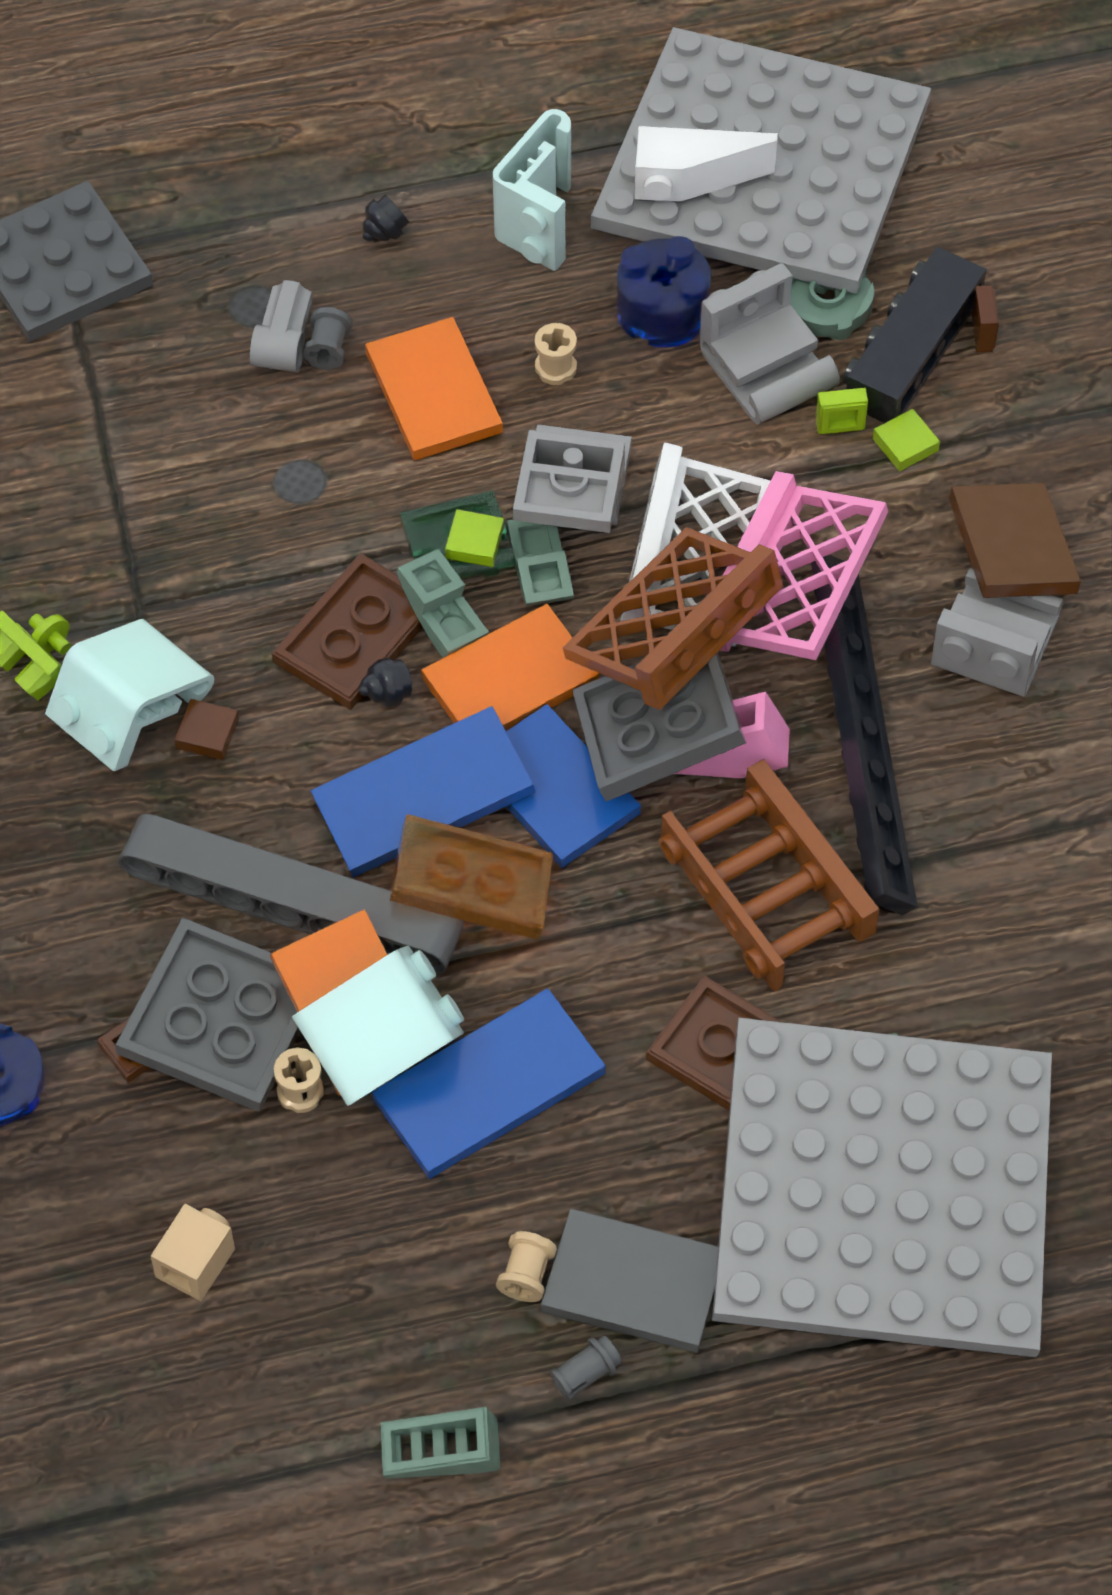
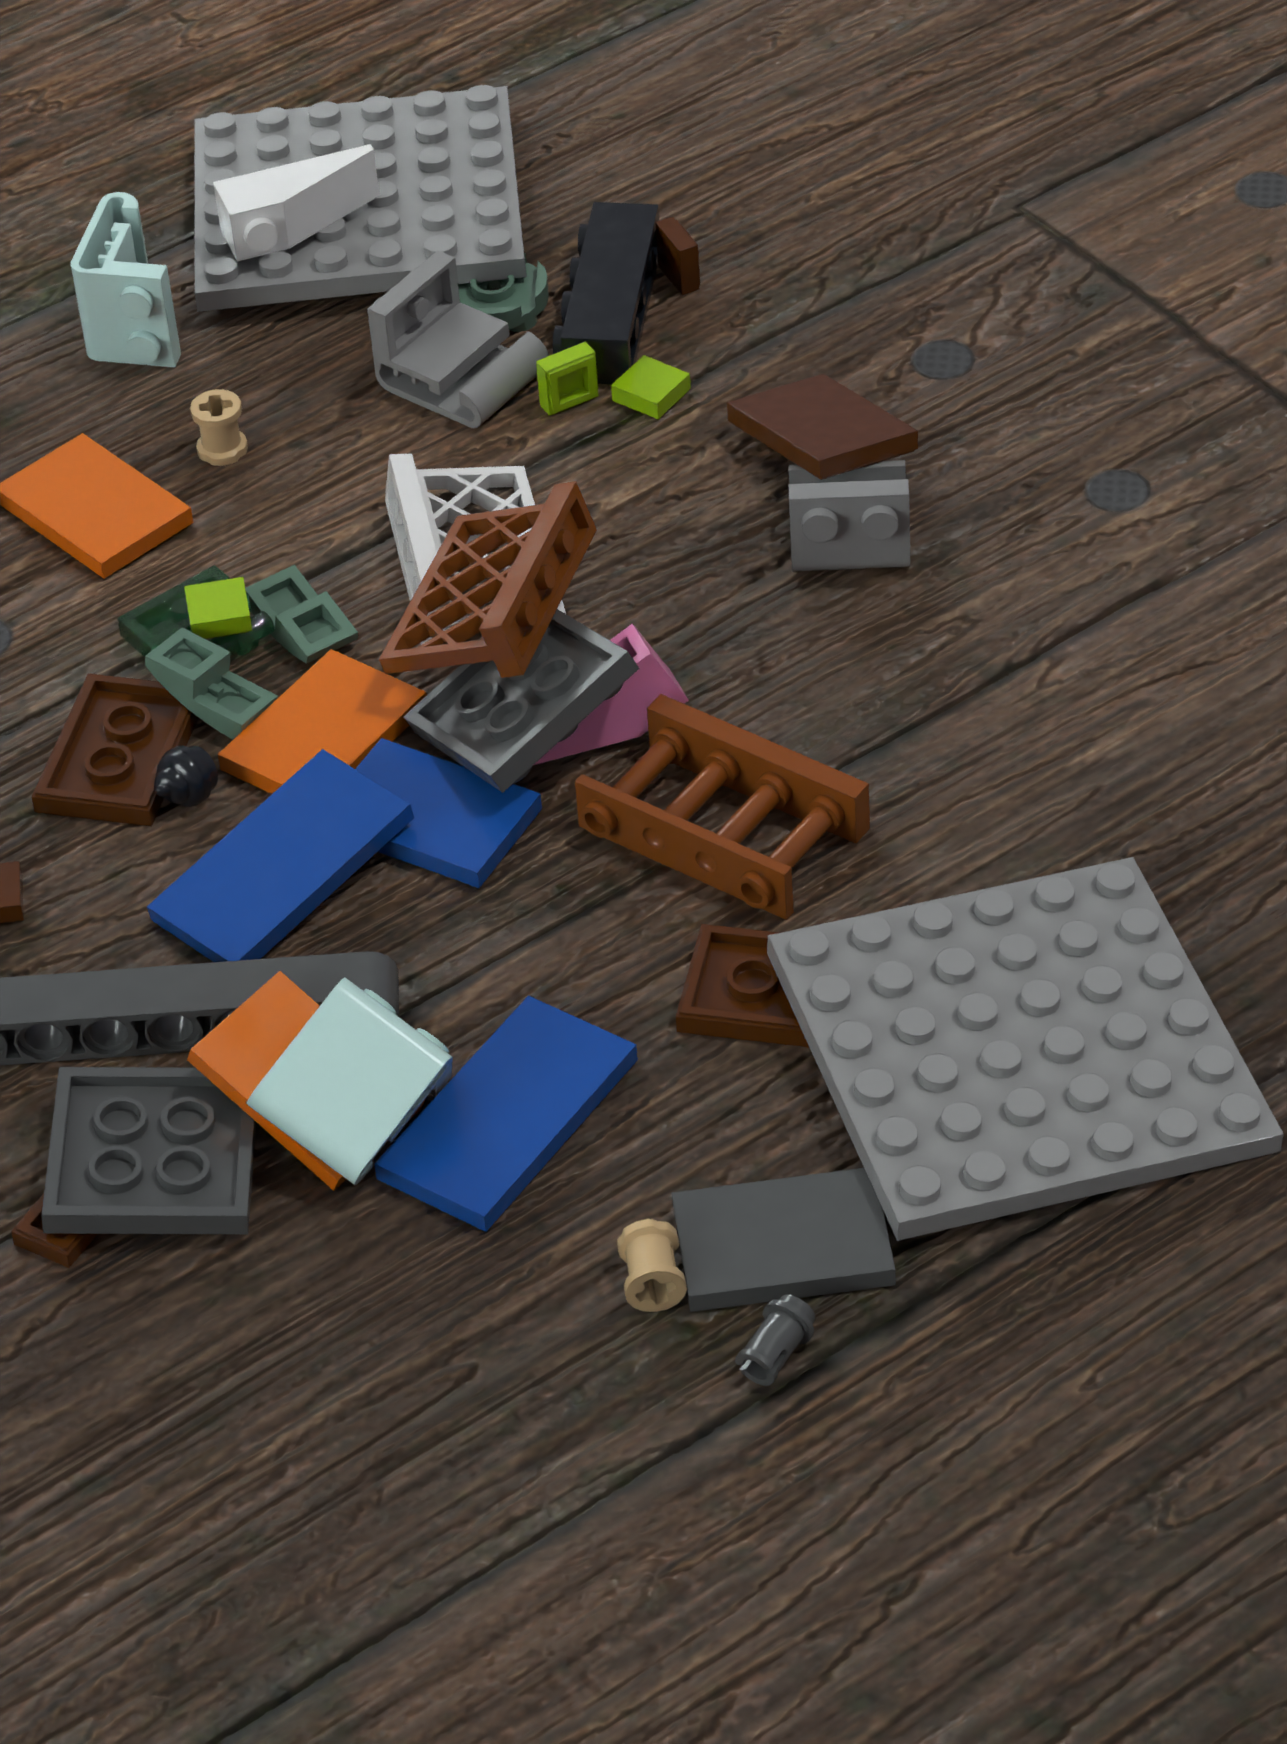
camera: 20 degrees left, 15 degrees down
(193, 1251) = (241, 1393): tan brick -> none
(308, 1069) = (287, 1168): tan bush -> none
(462, 1462) = (651, 1450): sand green slope -> none
(471, 877) = (384, 914): clear orange tile -> none
(572, 478) = (303, 516): light grey bracket -> none
(662, 291) = (311, 335): clear blue brick -> none
(774, 528) = (555, 465): bright pink fence -> none
(867, 753) = (743, 635): black plate -> none

